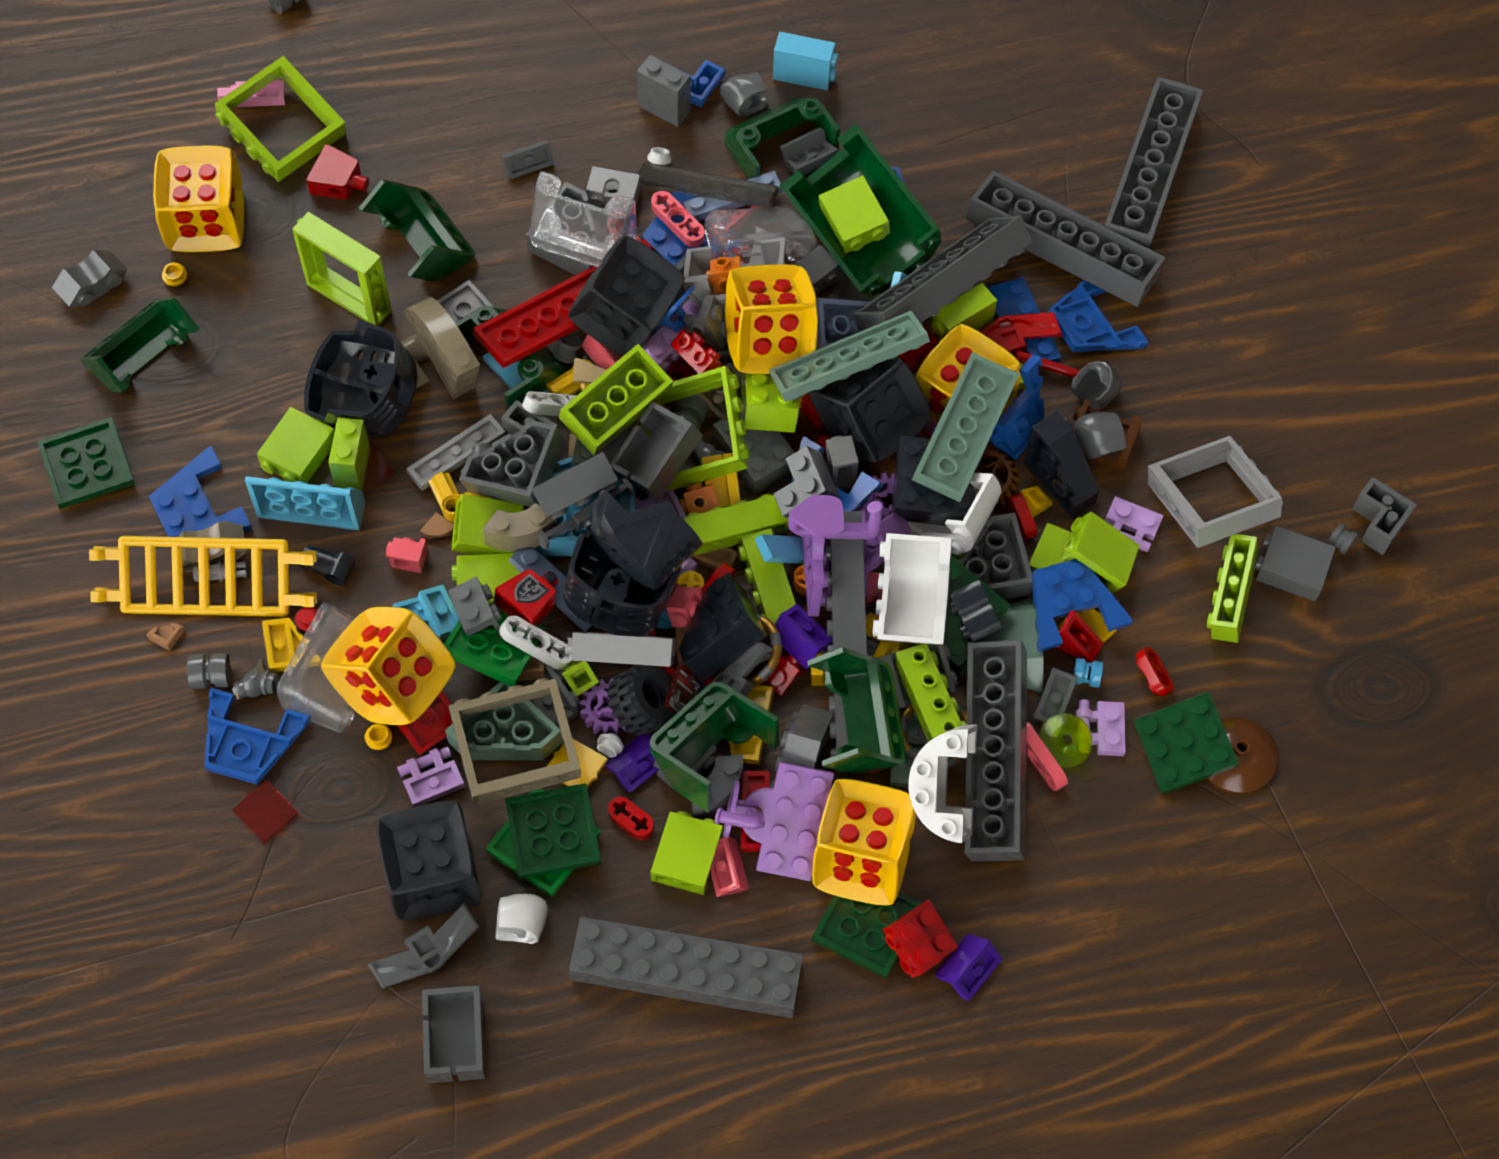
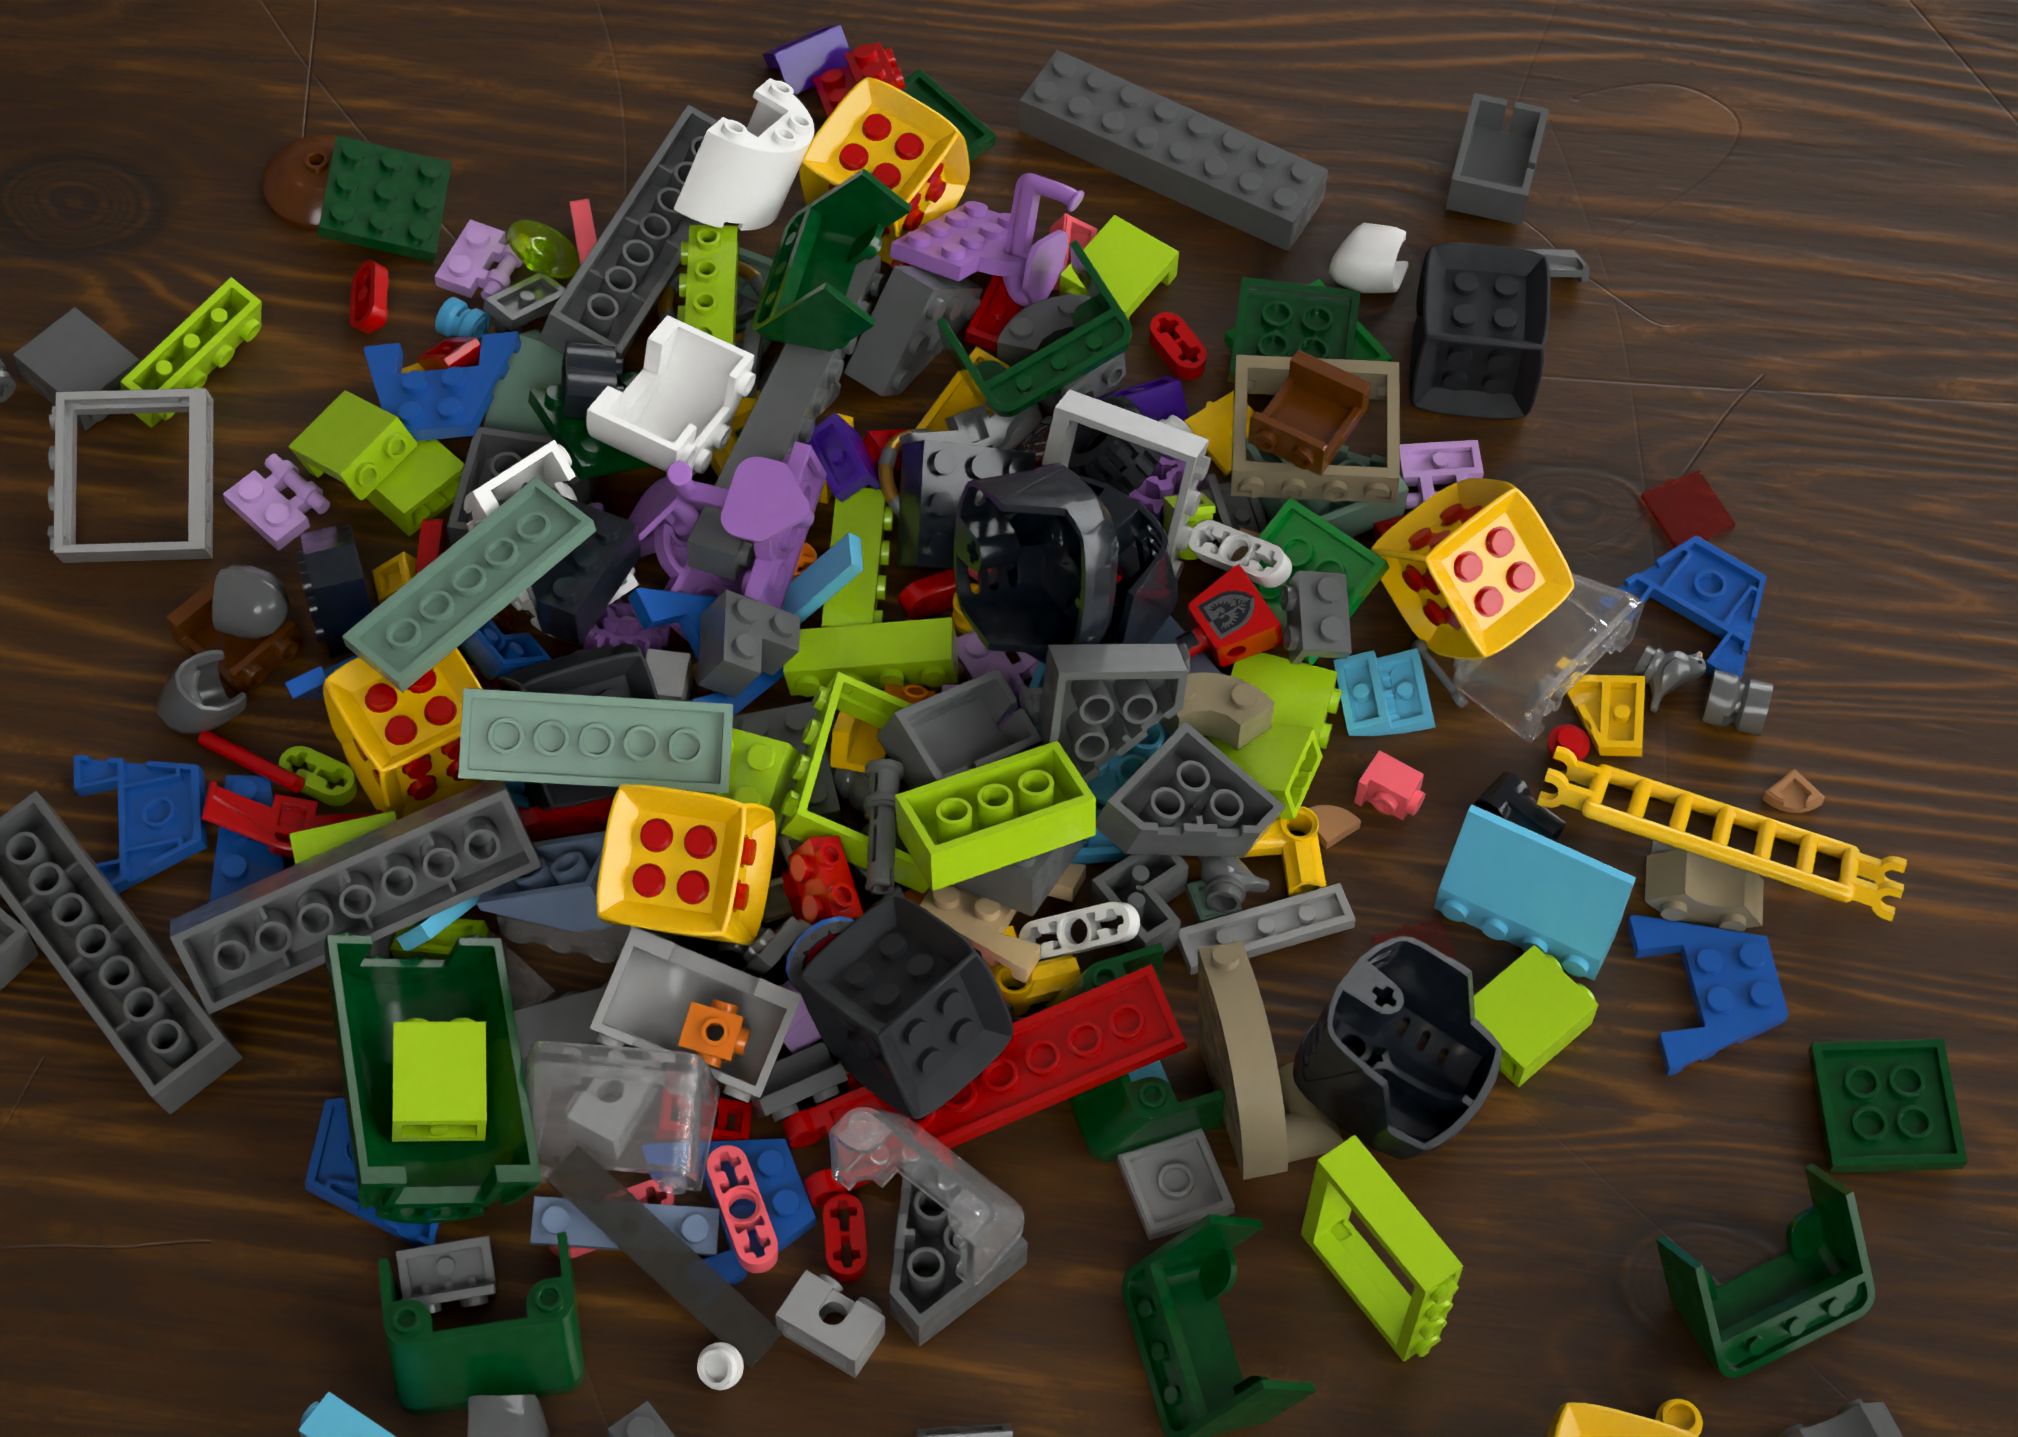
camera: 160 degrees left, 5 degrees down
(349, 453) = (1456, 919): lime brick -> none
(518, 722) = (1310, 413): none -> reddish brown panel
(681, 394) = (880, 806): none -> dark grey pin

